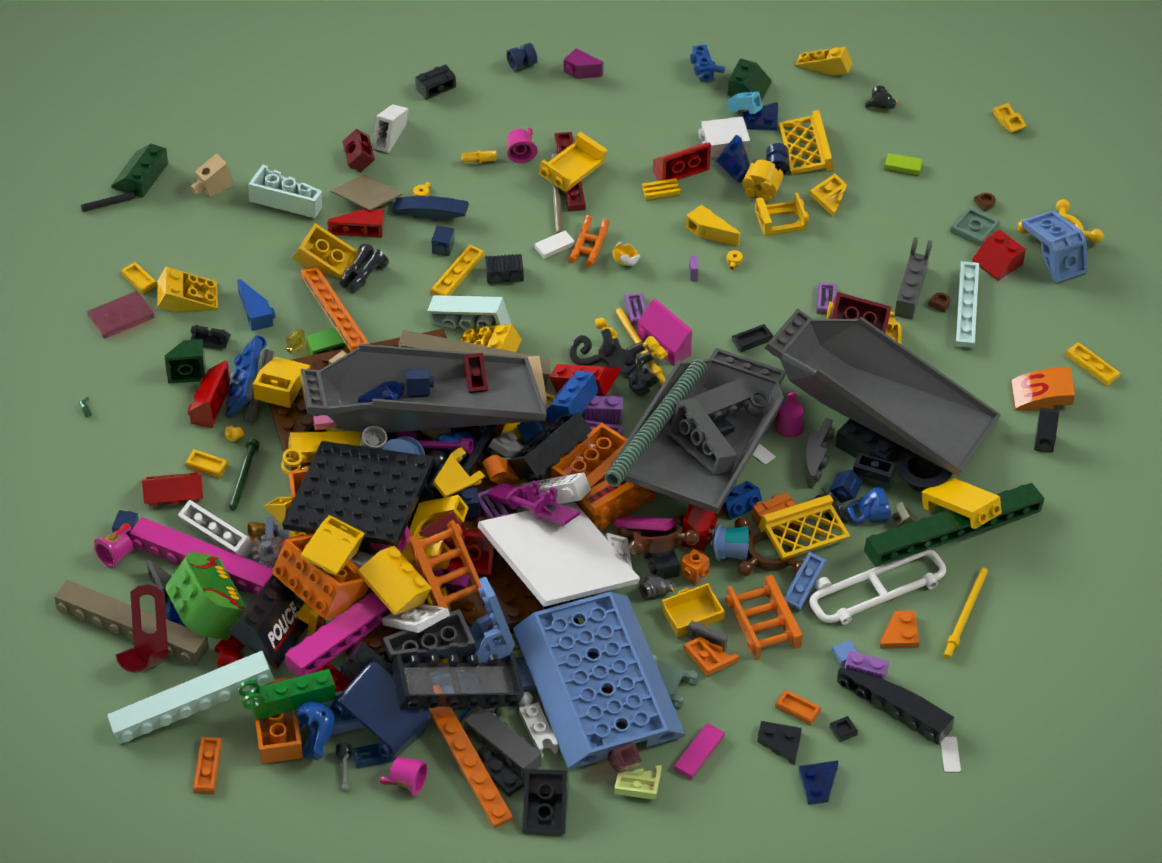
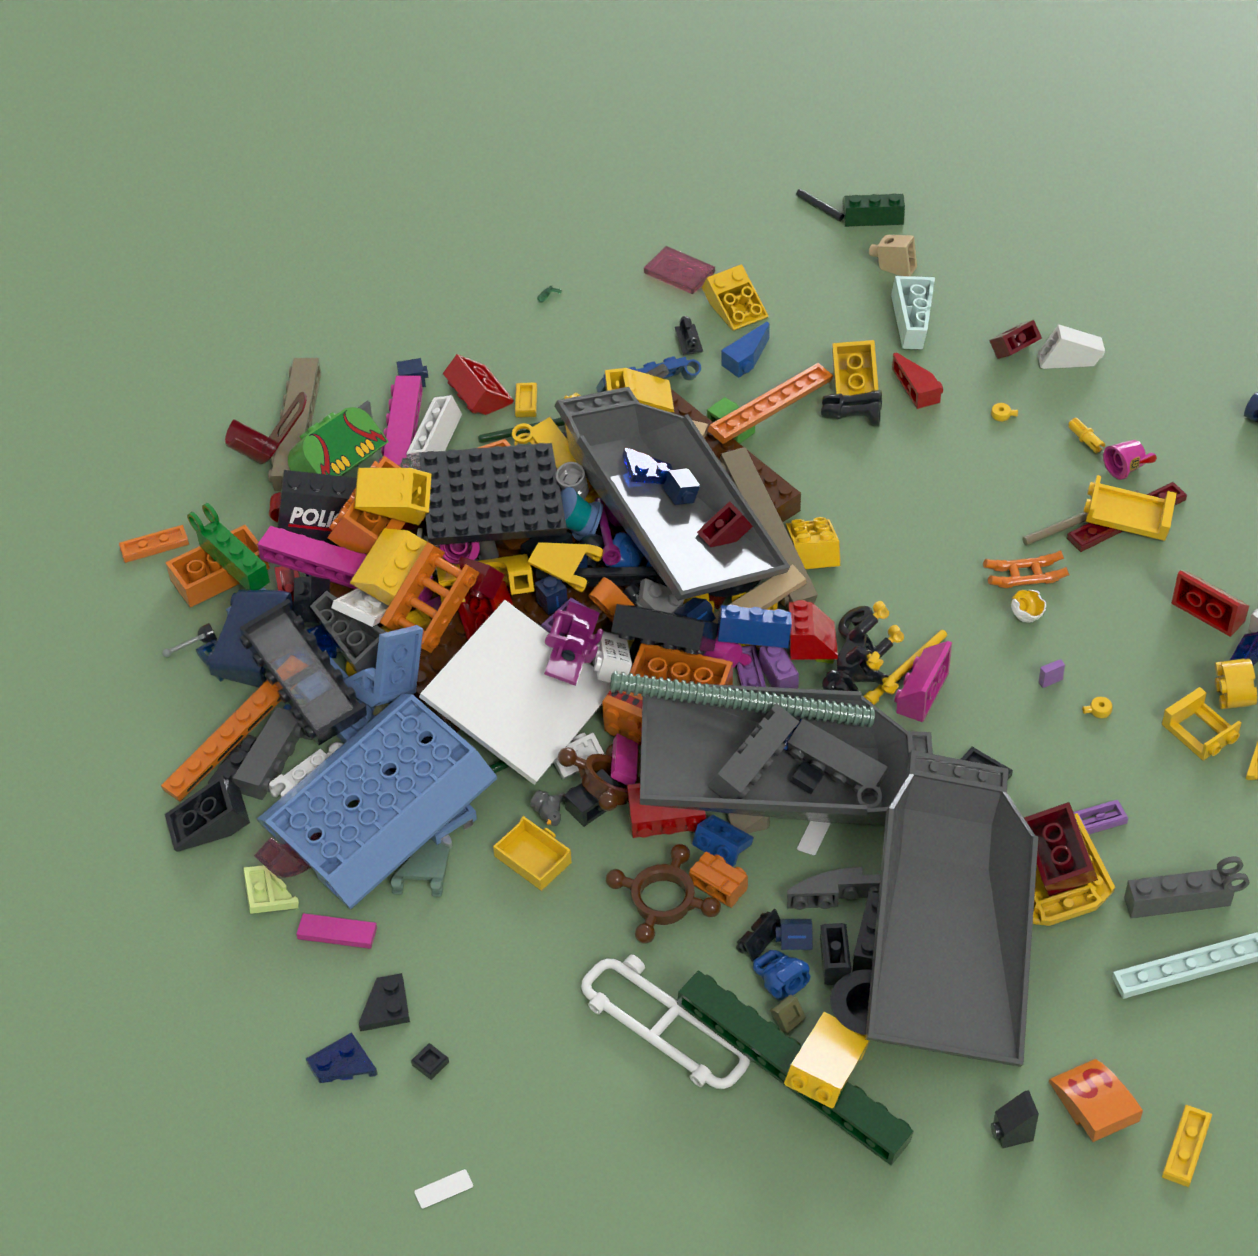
camera: 70 degrees right, 0 degrees up
(114, 546) = (377, 374): dark pink hat -> none
(138, 278) = (736, 257): yellow tile -> none
(186, 362) = (635, 330): dark green slope -> none
(189, 697) = (206, 487): light aqua brick -> none
(210, 396) = (591, 366): red slope -> none
(295, 341) = (717, 392): clear yellow tile -> none
(320, 726) = (214, 597): blue piece -> none
(366, 192) = (962, 369): dark tan piece -> none
(407, 774) = (193, 692): dark pink hat -> none
(435, 81) = (1169, 360): black brick -> none
(435, 207) = (980, 423): dark blue slope -> none
(443, 240) = (938, 451): dark blue brick -> none
(458, 271) = (907, 482): yellow tile -> none
(459, 583) = (453, 630): magenta tile -> none
(467, 311) = (845, 511): light aqua wedge -> none
(504, 268) = (933, 514): black brick -> none
(554, 244) = (1004, 543): white tile -> none
(628, 306) = (966, 648): medium lavender tile -> none
(663, 187) = (1163, 601): yellow tile -> none
(695, 566) = (593, 831): orange brick -> none
(709, 656) = (473, 891): orange wing -> none
(711, 227) = (1129, 664): yellow slope -> none
(713, 636) = (499, 879): dark grey tile -> none
(730, 543) = (638, 846): medium blue hat -> none
(777, 604) = (560, 944): orange fence -> none
(790, 417) = (869, 844): dark pink hat -> none
(798, 707) = (442, 1004): orange tile -> none
(799, 512) = (714, 895): yellow fence -> none
(804, 581) = (625, 942): medium blue tile -> none
(842, 650) = (545, 1024): medium blue tile -> none
(867, 664) = (521, 1050): medium lavender brick -> none
(899, 704) = (484, 1110): black slope -> none
(901, 631) = (608, 1071): orange wing -> none
(940, 301) = (1178, 936): reddish brown tile -> none
(954, 639) = (617, 1132): yellow bar -> none

